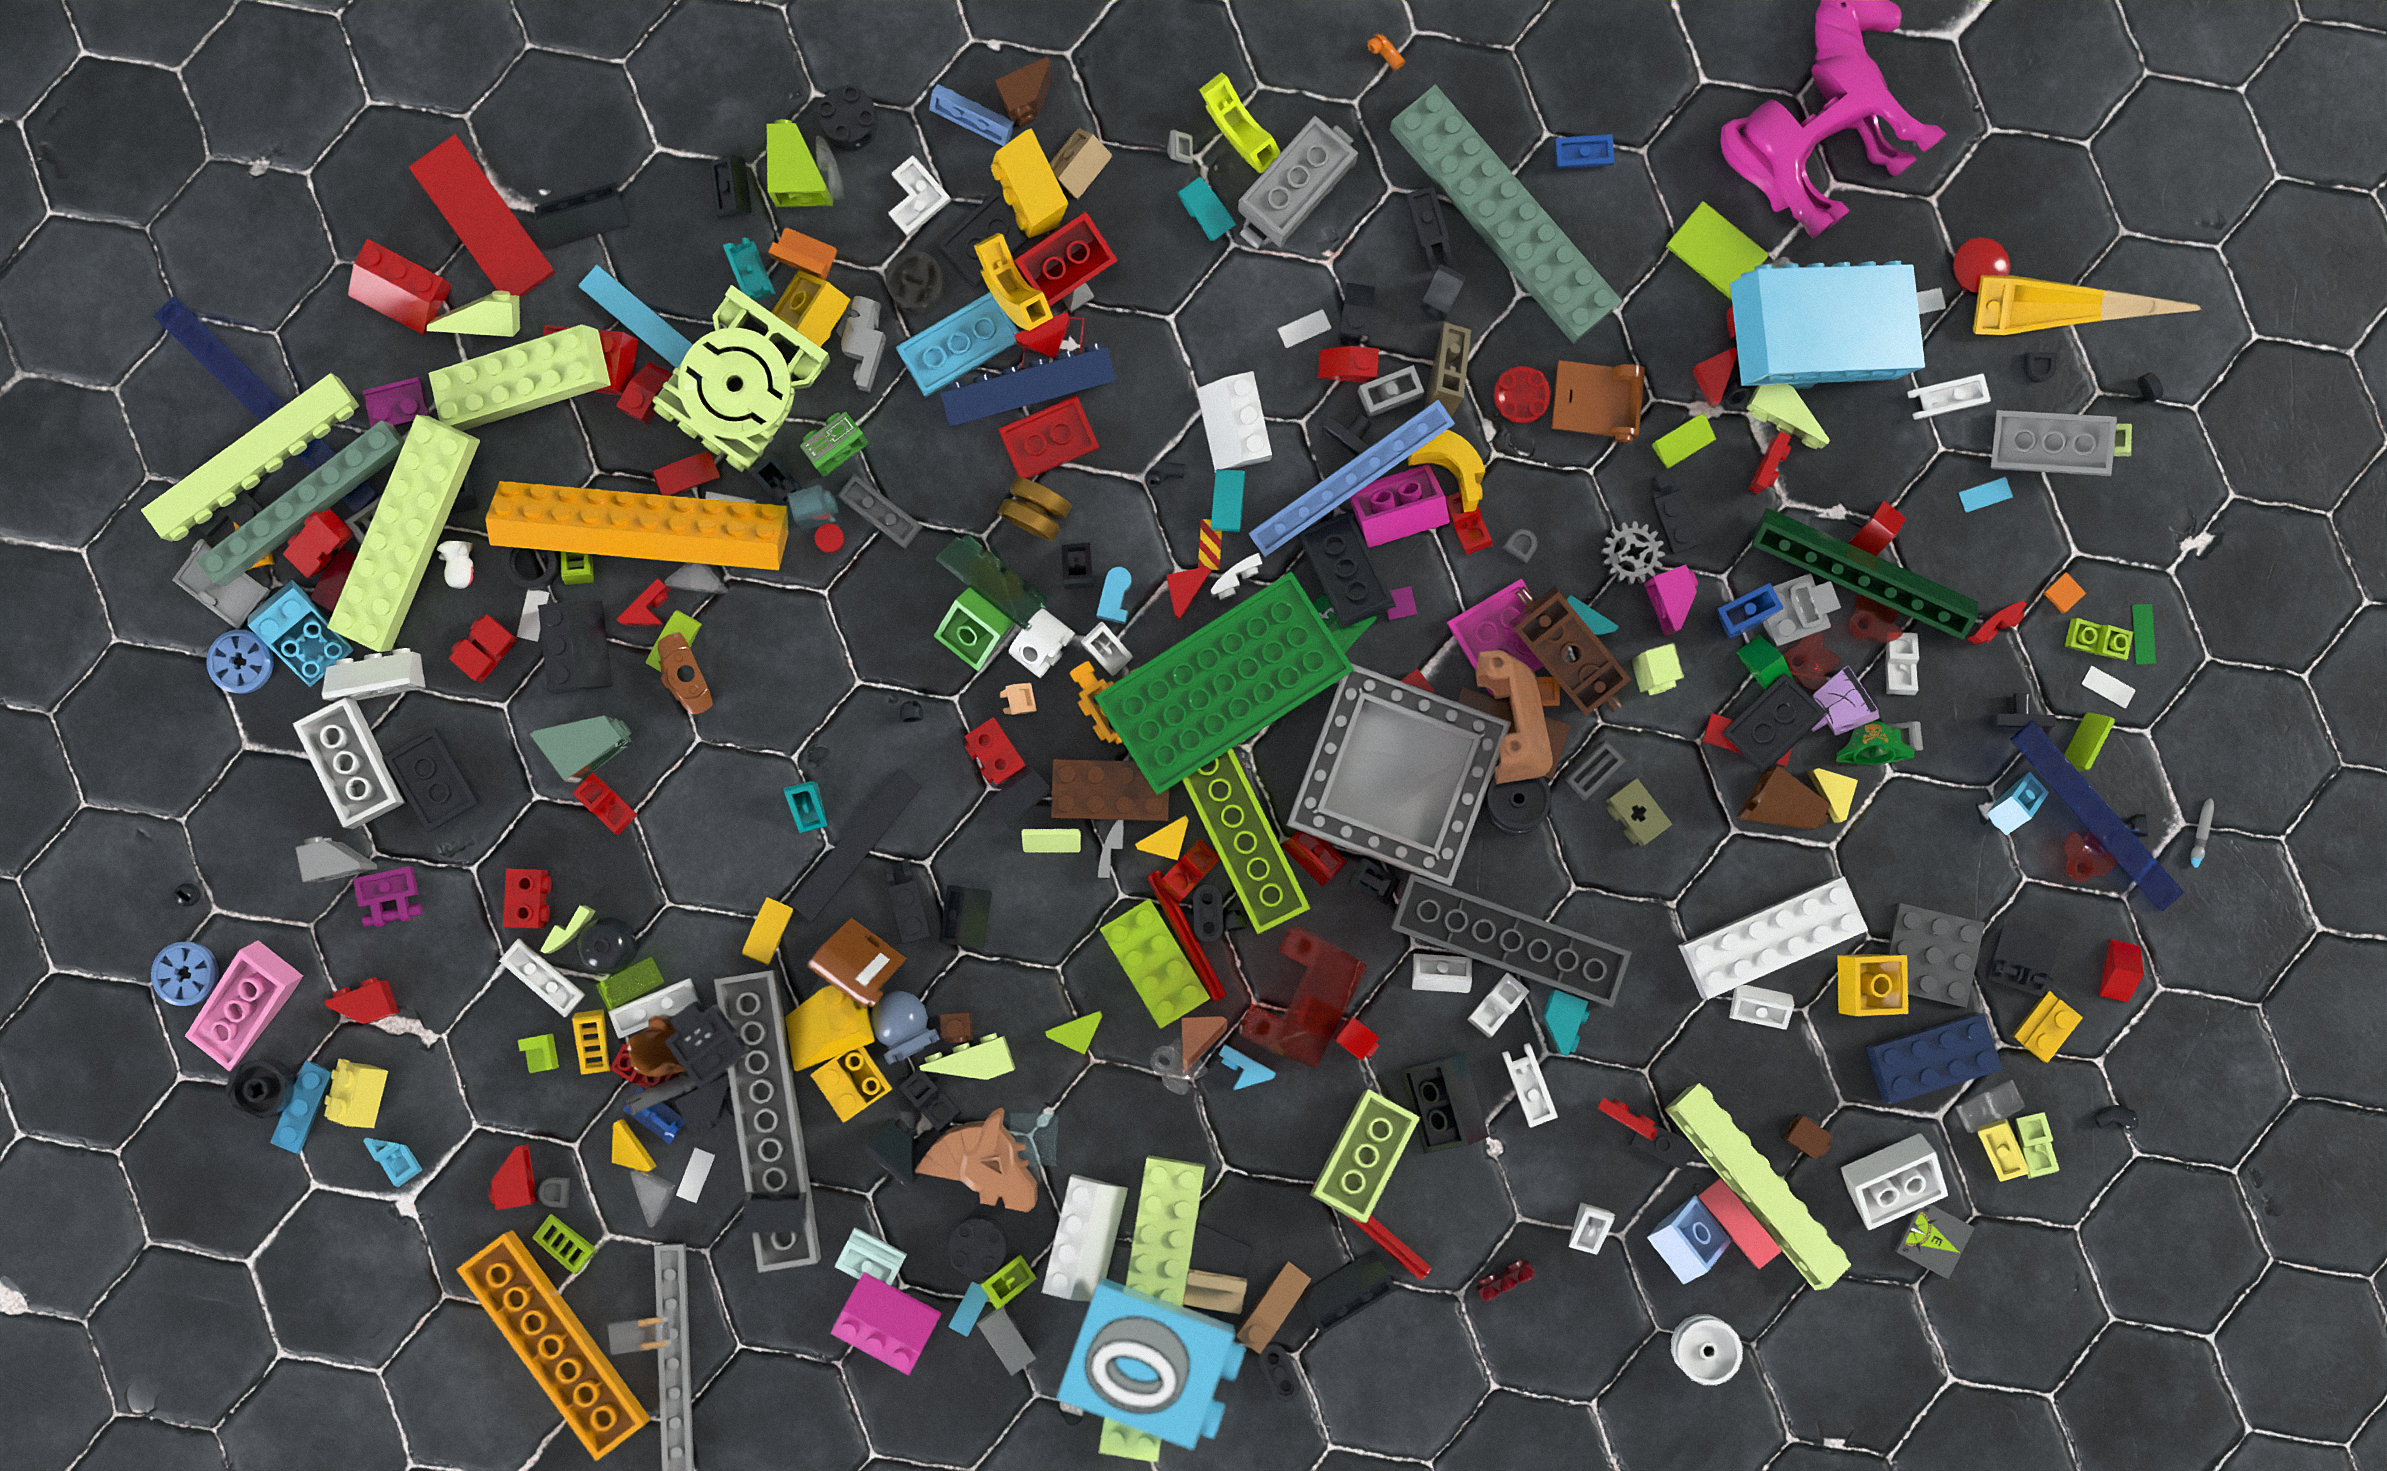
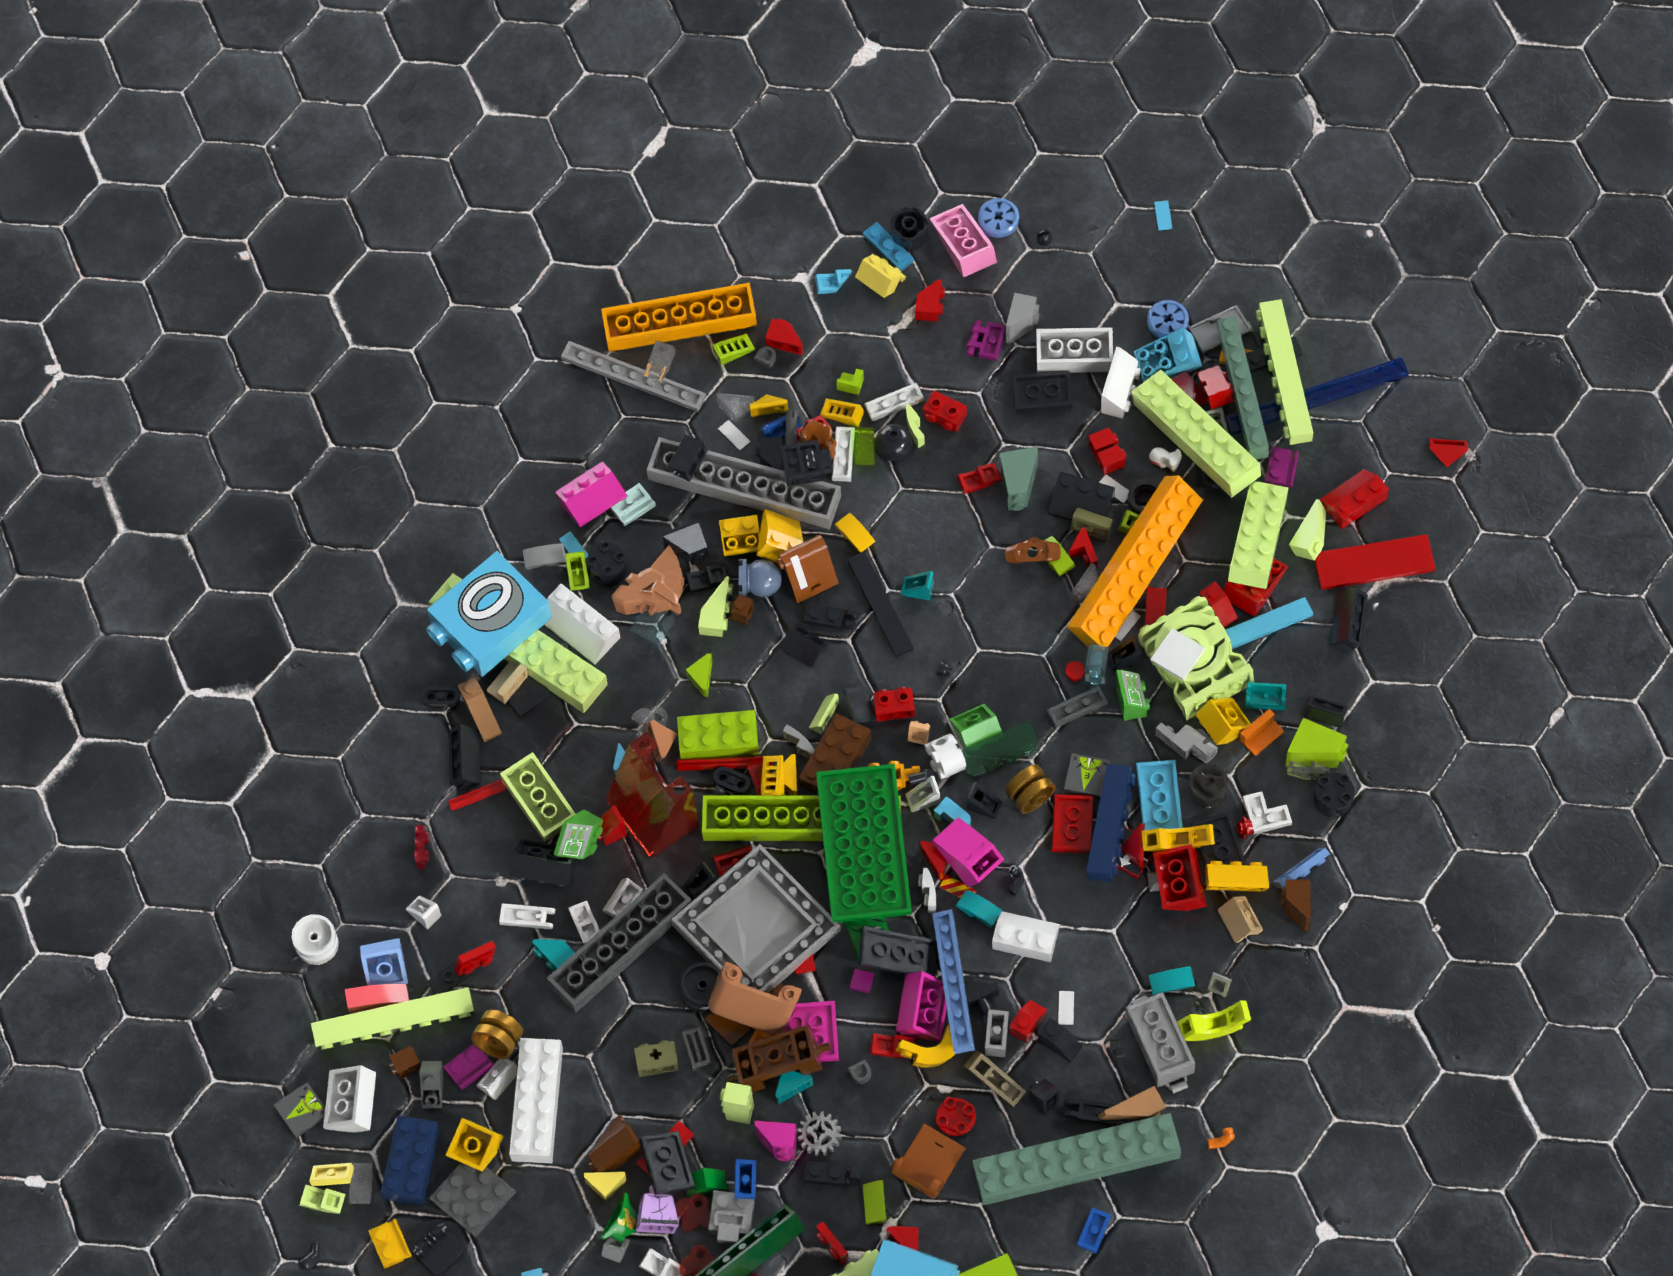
camera: 125 degrees right, 20 degrees down
(74, 747) = (1163, 215): none -> medium azure sticker
(265, 195) = (1448, 450): none -> red slope
(602, 612) = (1095, 524): none -> olive slope
(756, 394) = (1177, 654): none -> white tile
(949, 213) = (1244, 827): none -> red plate
(972, 451) = (1086, 775): none -> dark grey tile
(1081, 654) = (920, 777): none -> black arm
(1164, 545) = (967, 852): none -> dark pink slope
(1201, 850) = (765, 785): none -> yellow slope
(1394, 1069) = (579, 836): none -> bright green slope
(1399, 167) = (1139, 1107): none -> medium nougat slope
(1718, 1032) = (497, 1034): none -> pearl gold wheel
(1767, 1053) = (468, 1066): none -> magenta plate
(1818, 1086) = (431, 1084): none -> dark grey slope

